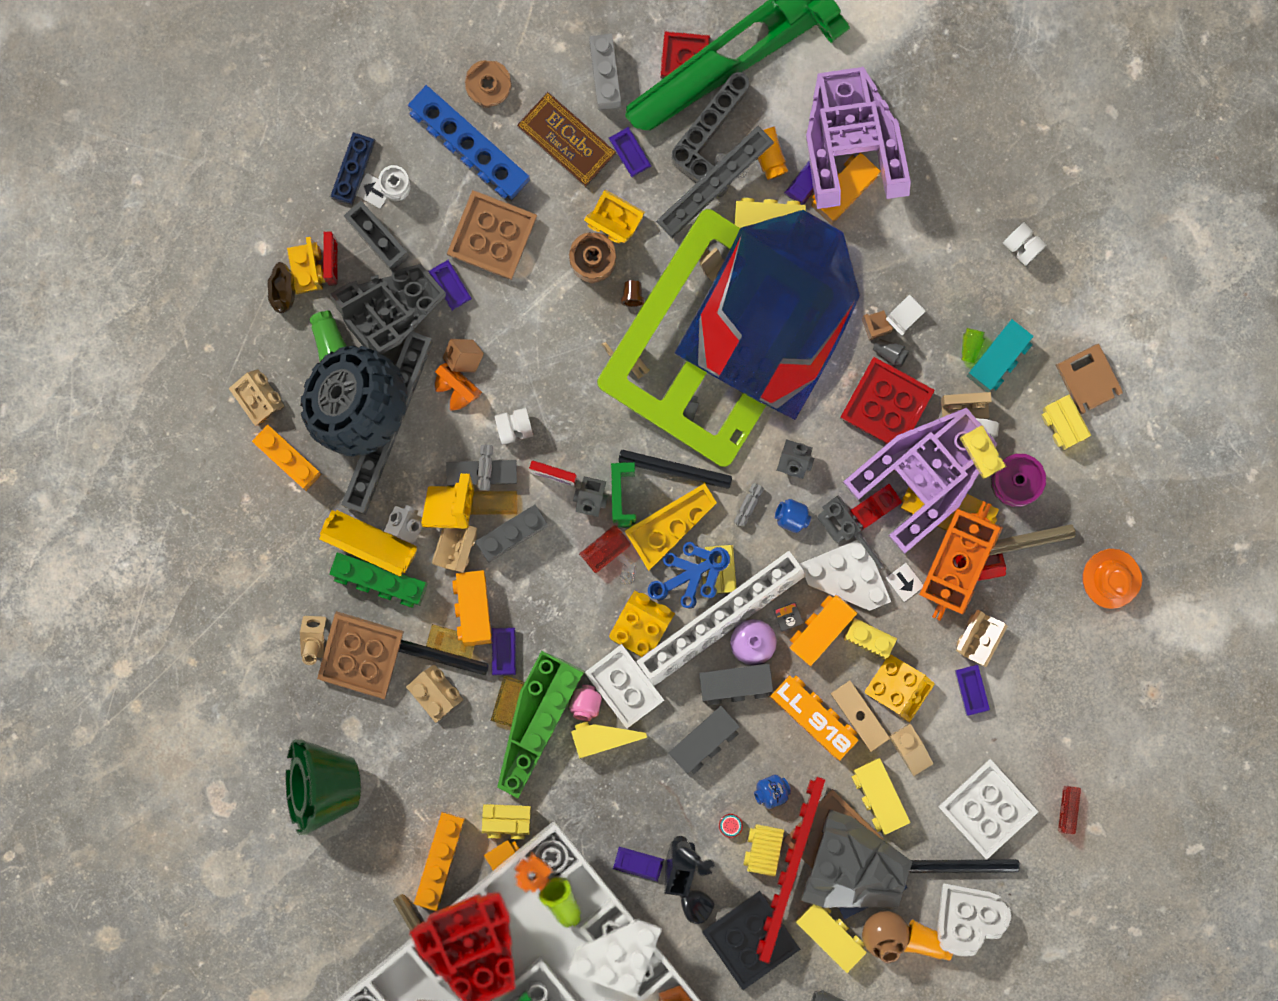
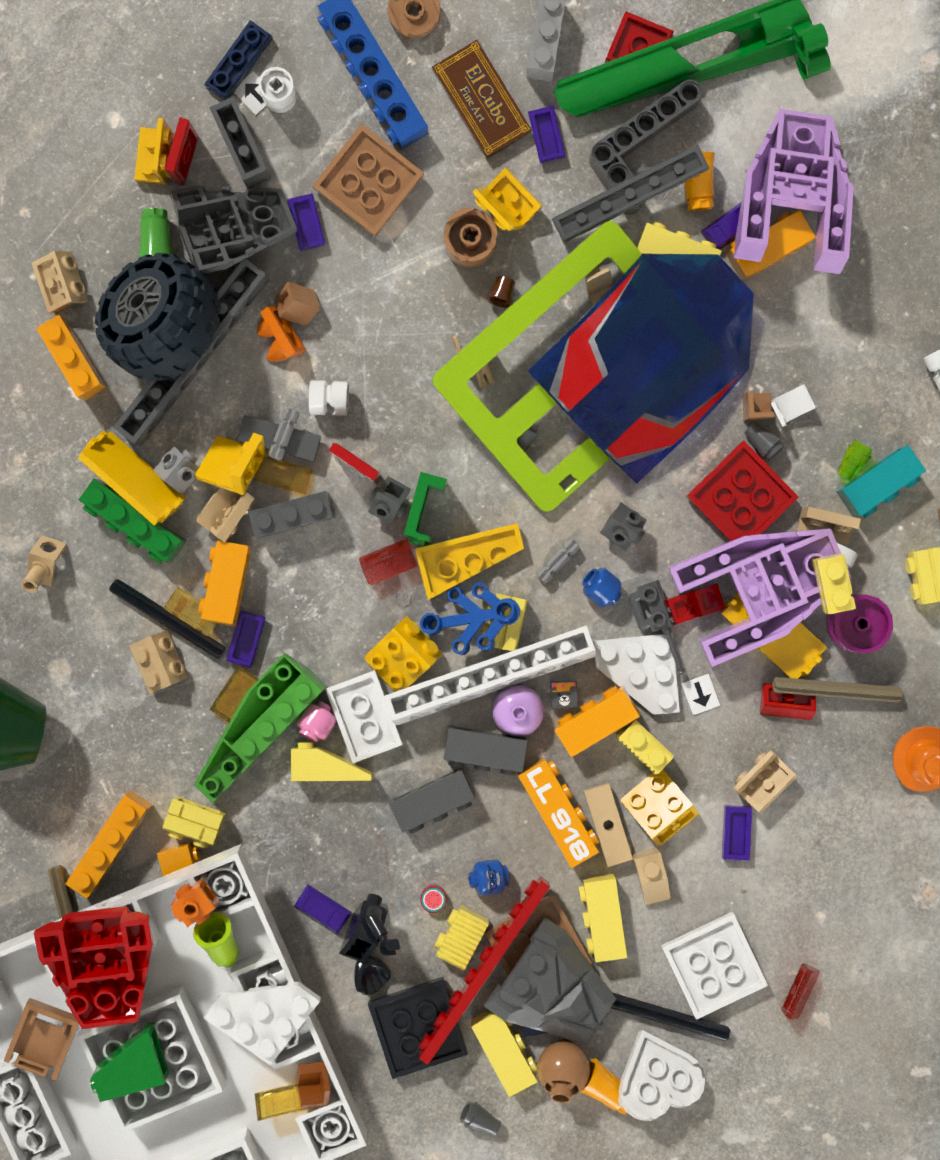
camera: 15 degrees right, 5 degrees up
(281, 288) = (120, 170): dark brown arm -> none
(360, 655) = (88, 597): medium nougat plate -> none
(675, 469) = (490, 498): black axle -> none
(970, 536) = (791, 672): orange brick -> none

